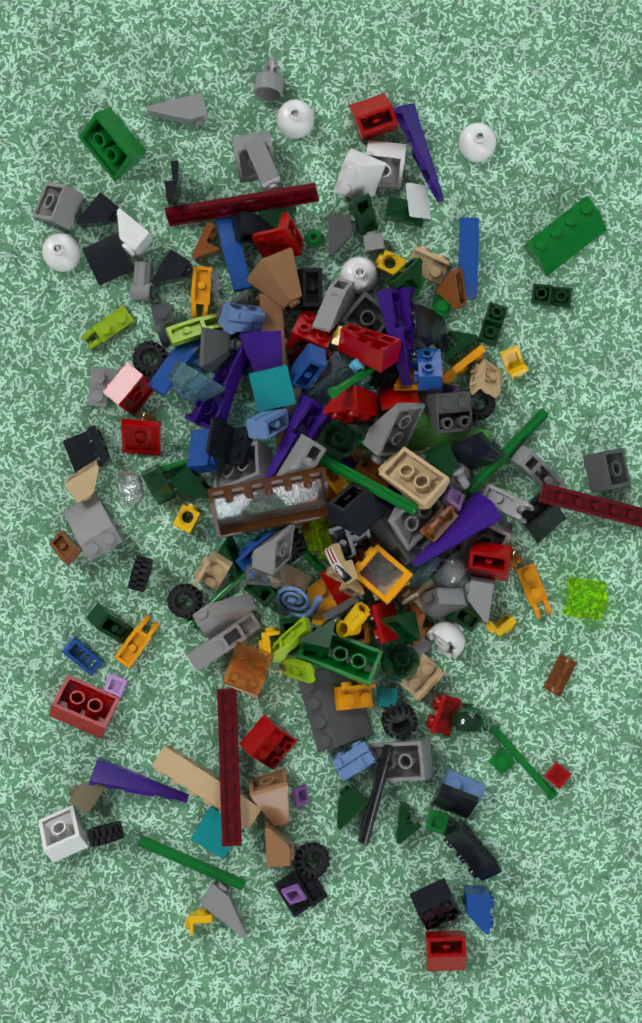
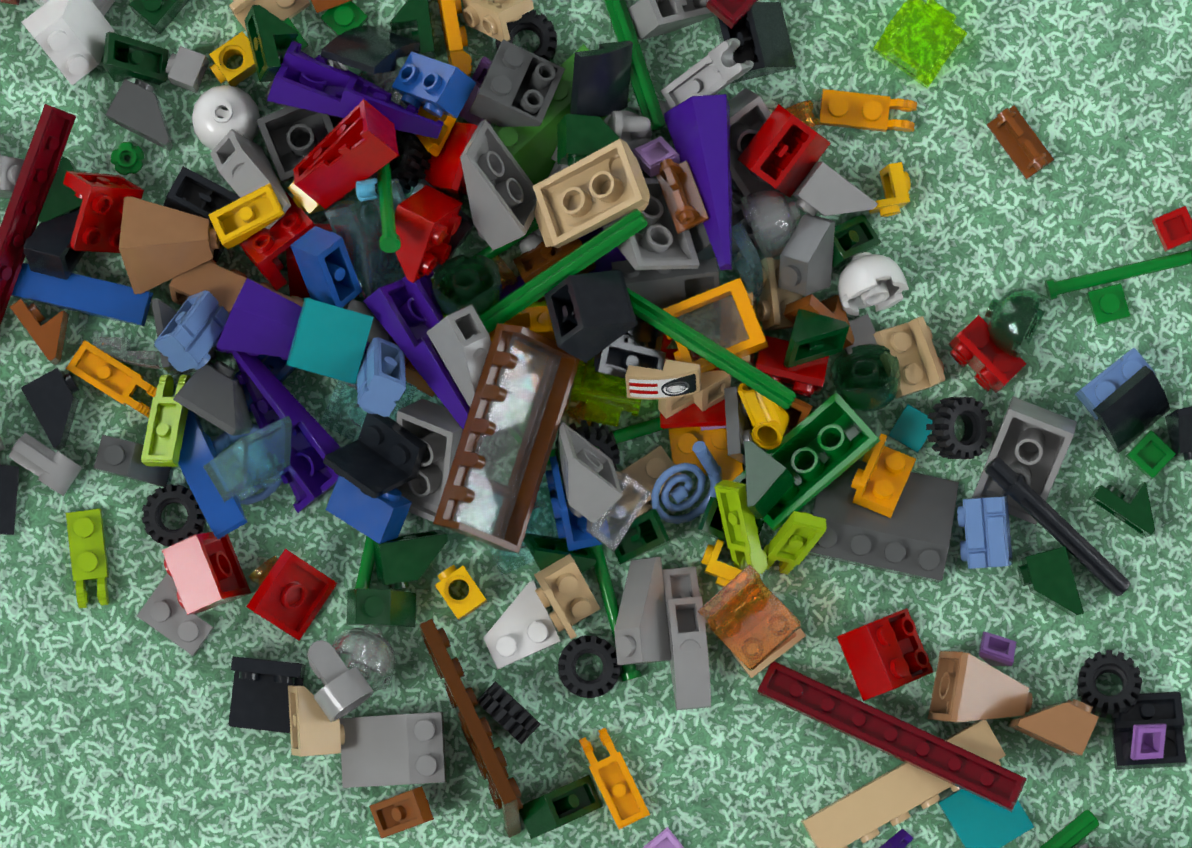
camera: 65 degrees left, 5 degrees down
(107, 487) = (342, 687): none -> light grey piece
(122, 564) = (476, 730): none -> reddish brown wing
(185, 557) = (521, 629): none -> white wing
(312, 313) = (246, 216): none -> yellow slope
(367, 582) = (711, 351): none -> green axle

